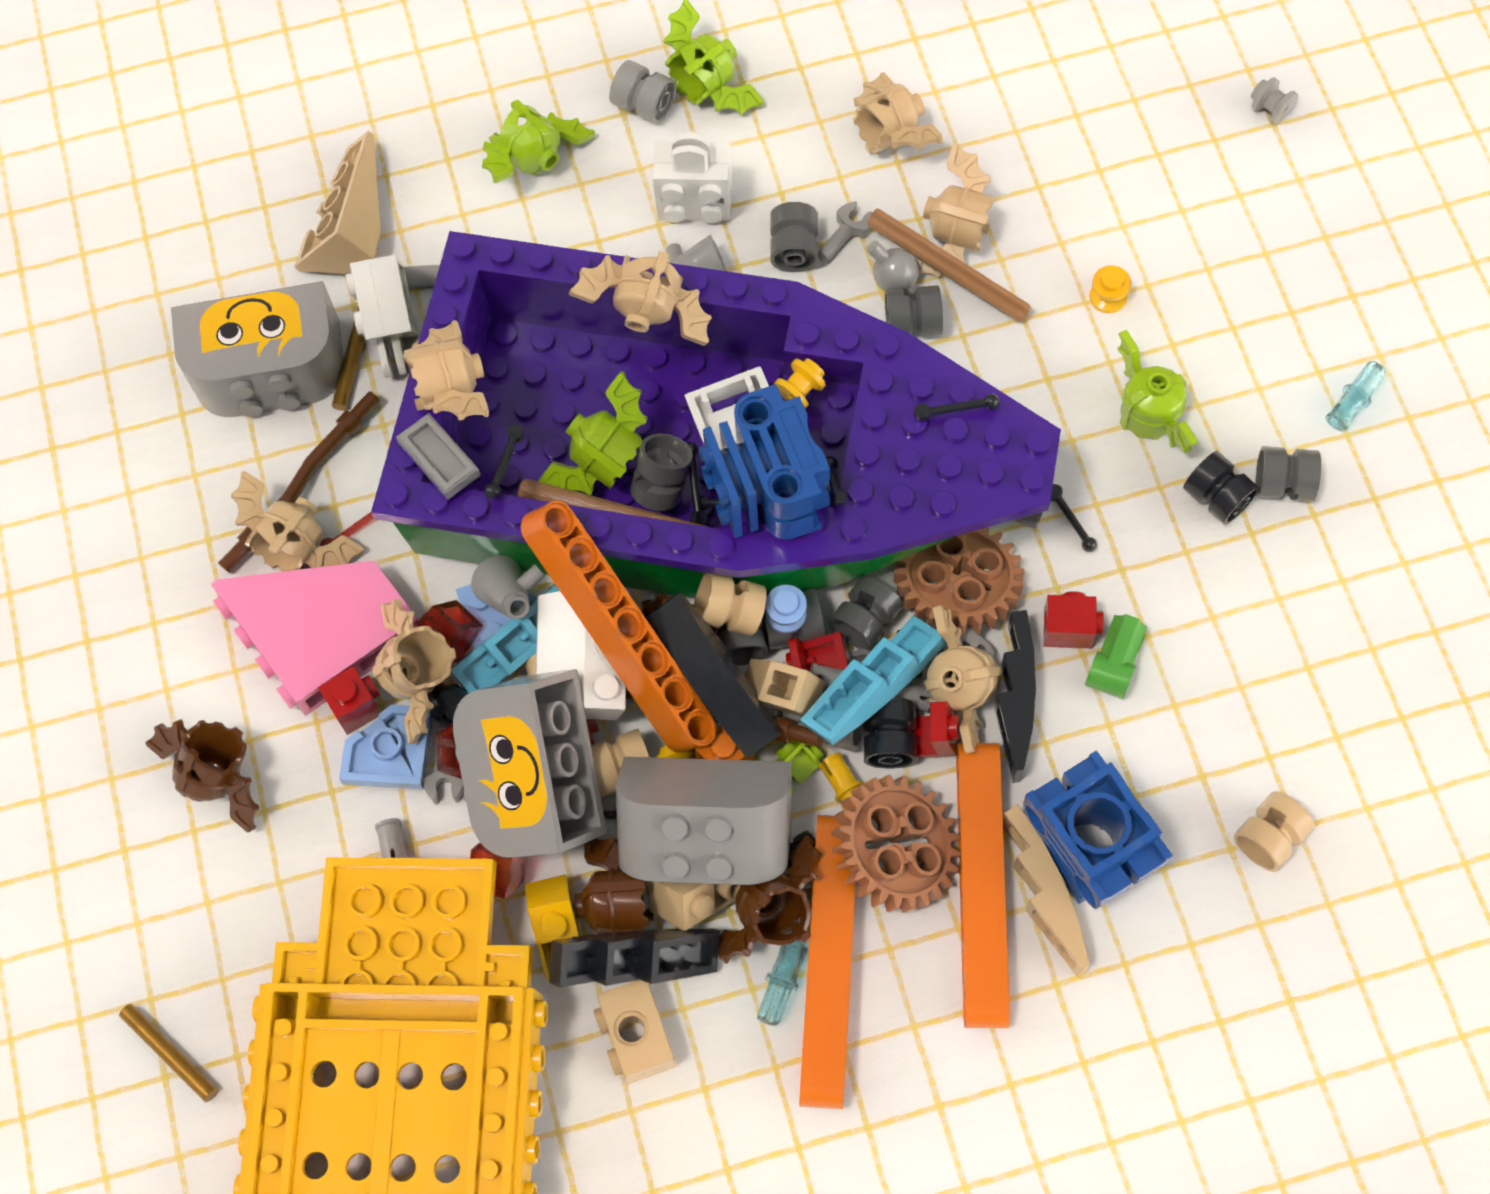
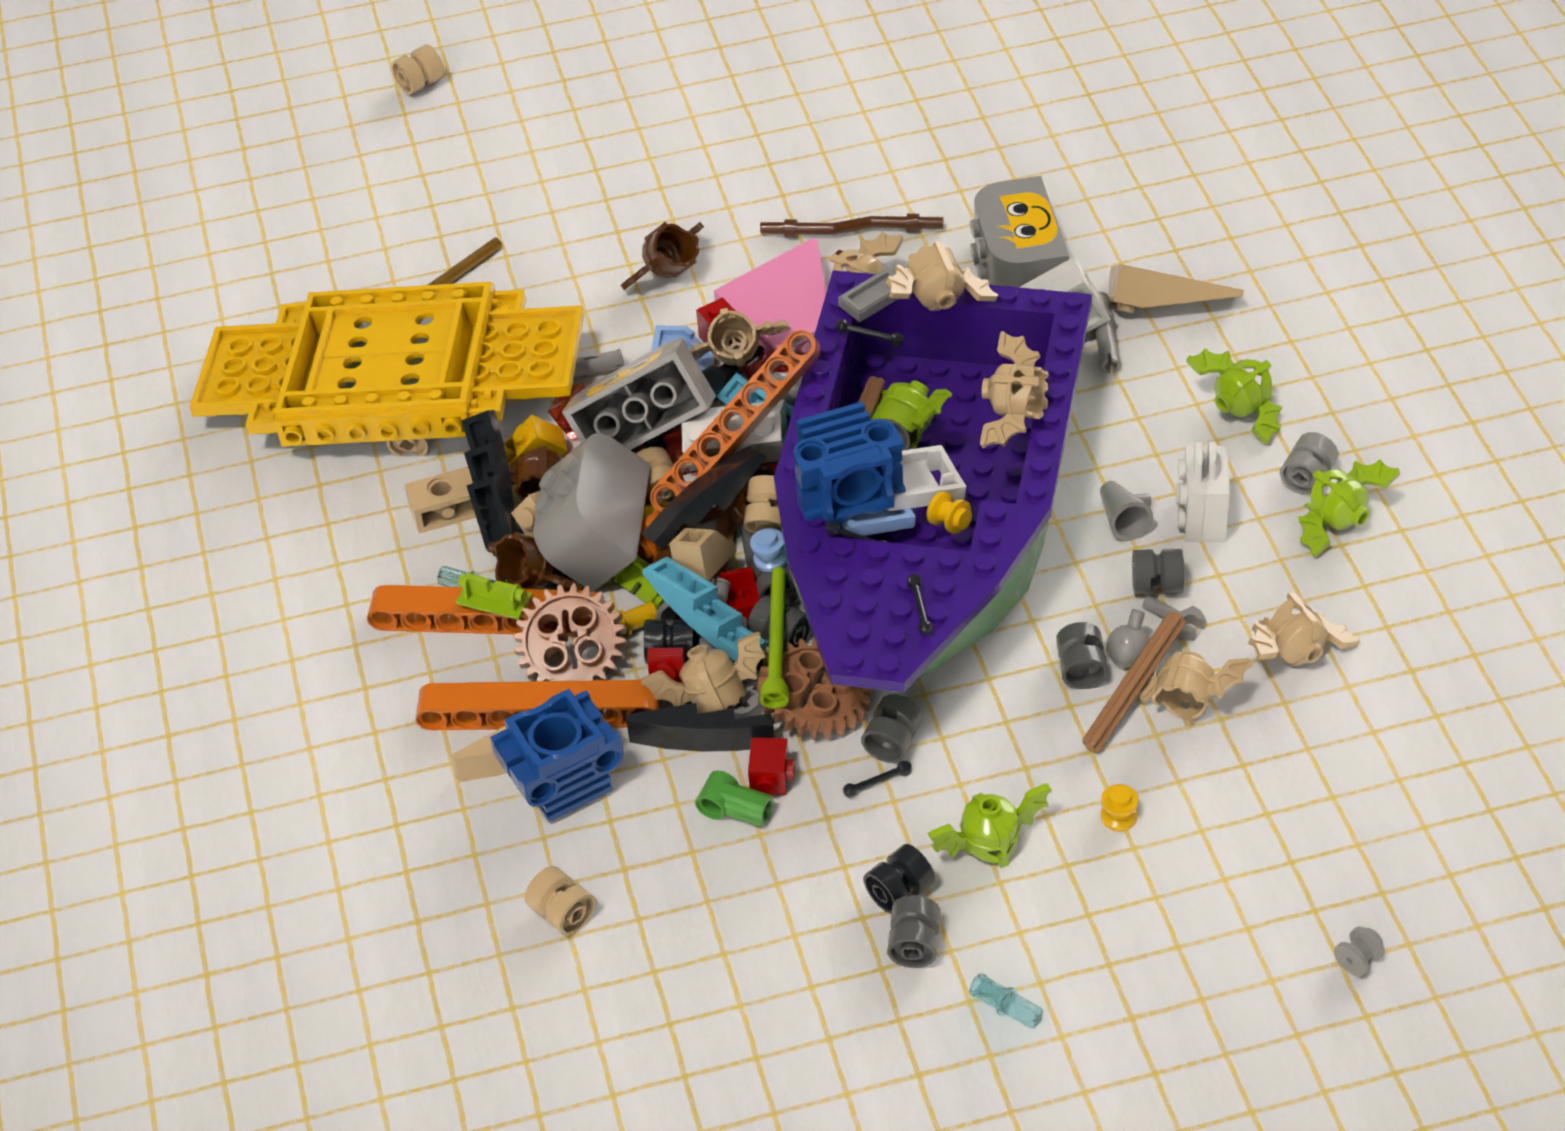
camera: 90 degrees right, 20 degrees down
(165, 622) = (793, 228): none -> reddish brown bar
(837, 935) = (494, 597): none -> lime hinge
(988, 602) = (774, 690): none -> lime piece

